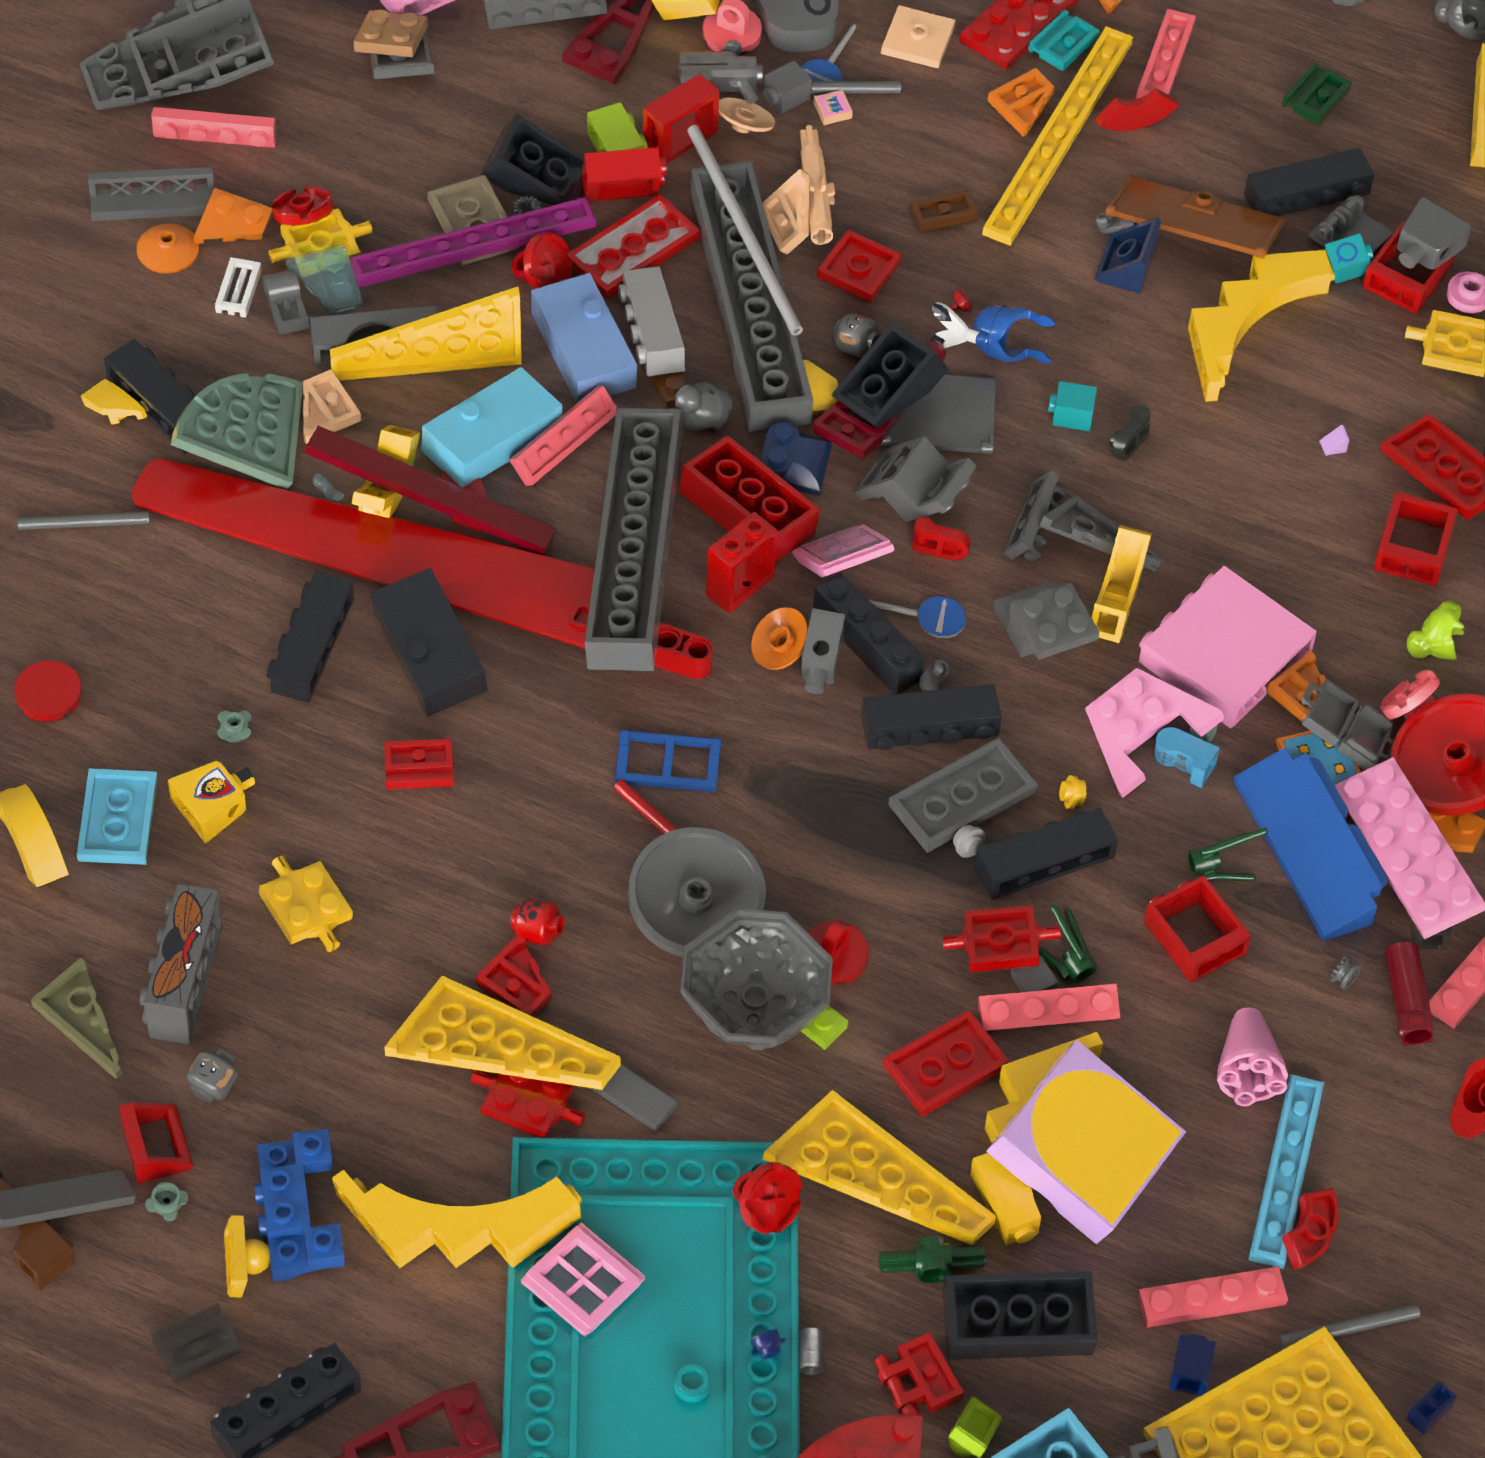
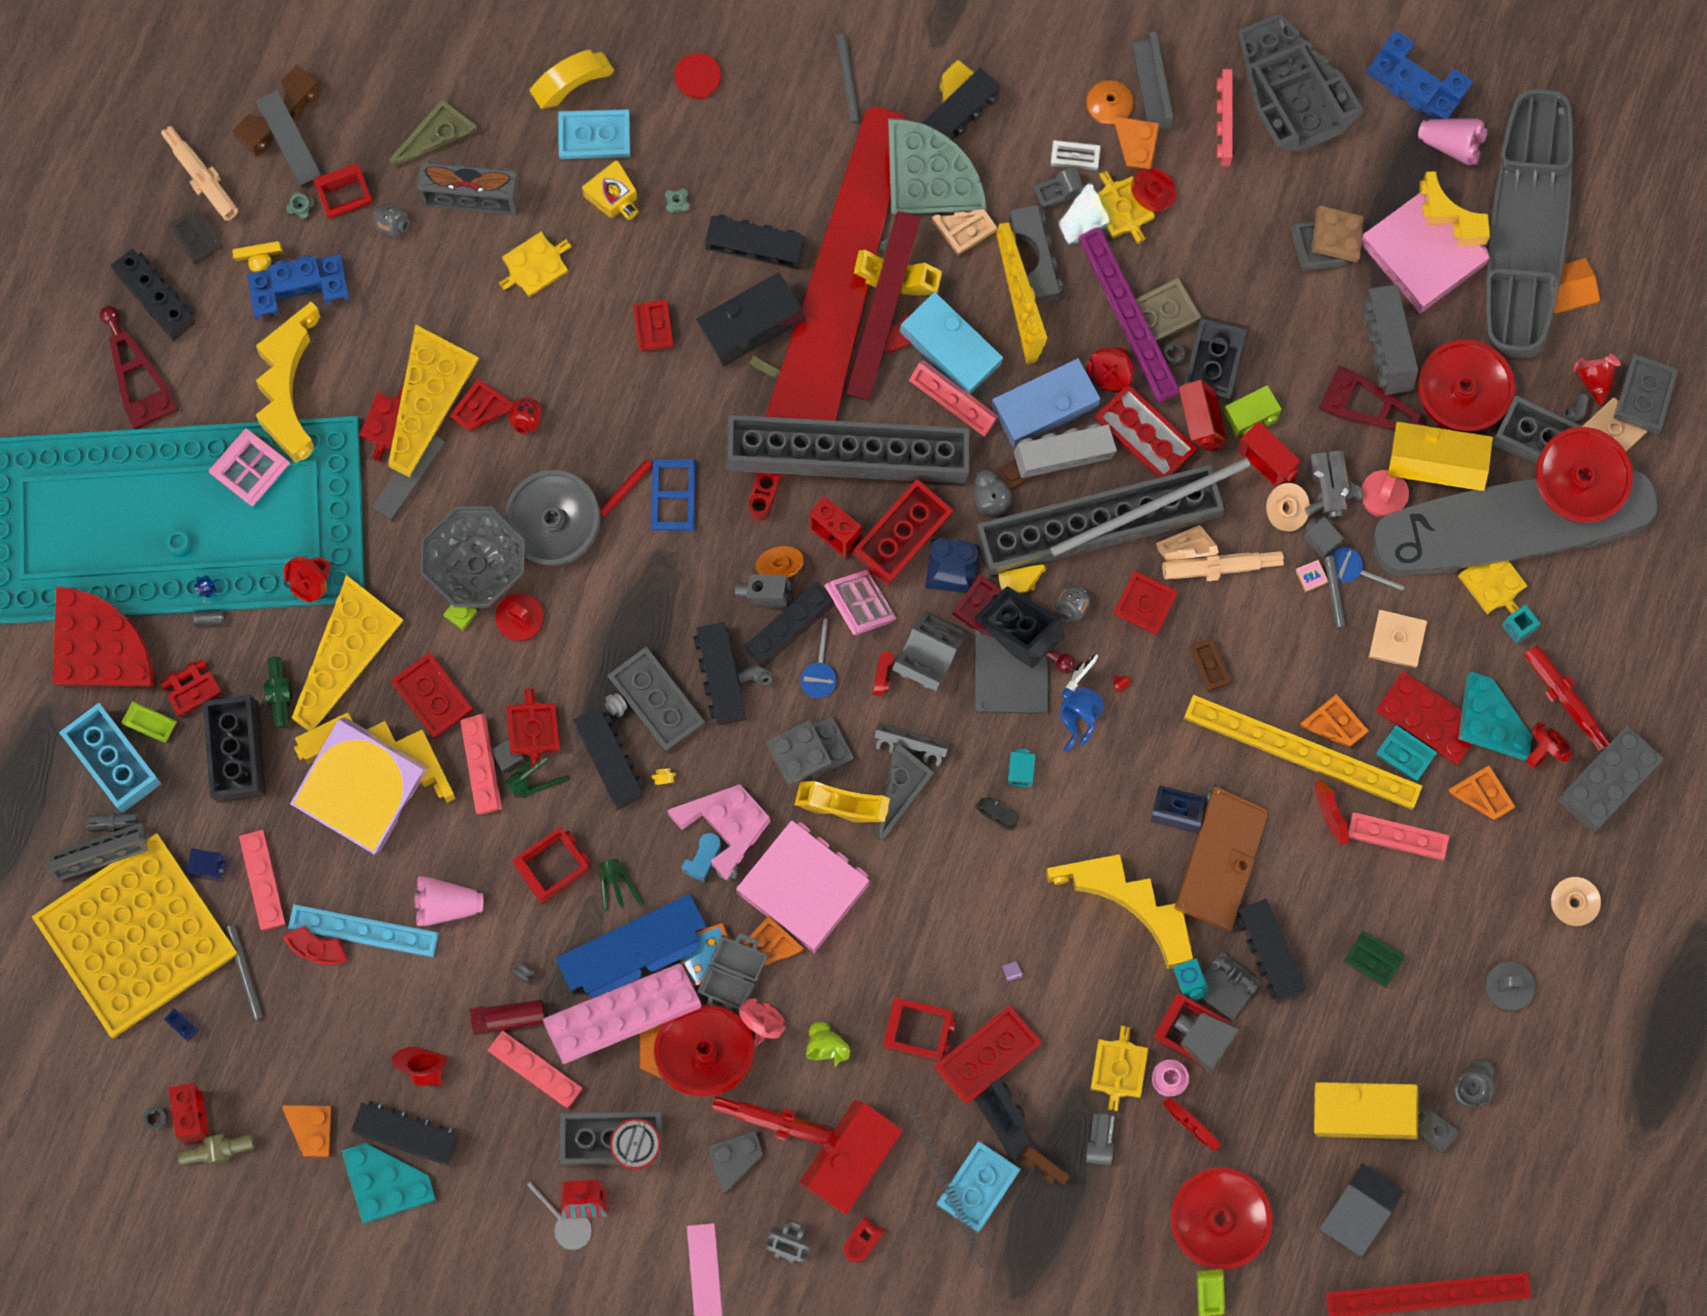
camera: 90 degrees right, 20 degrees up
(106, 1324) = (204, 179): none -> light nougat piece
(497, 636) = (764, 366): none -> olive tile

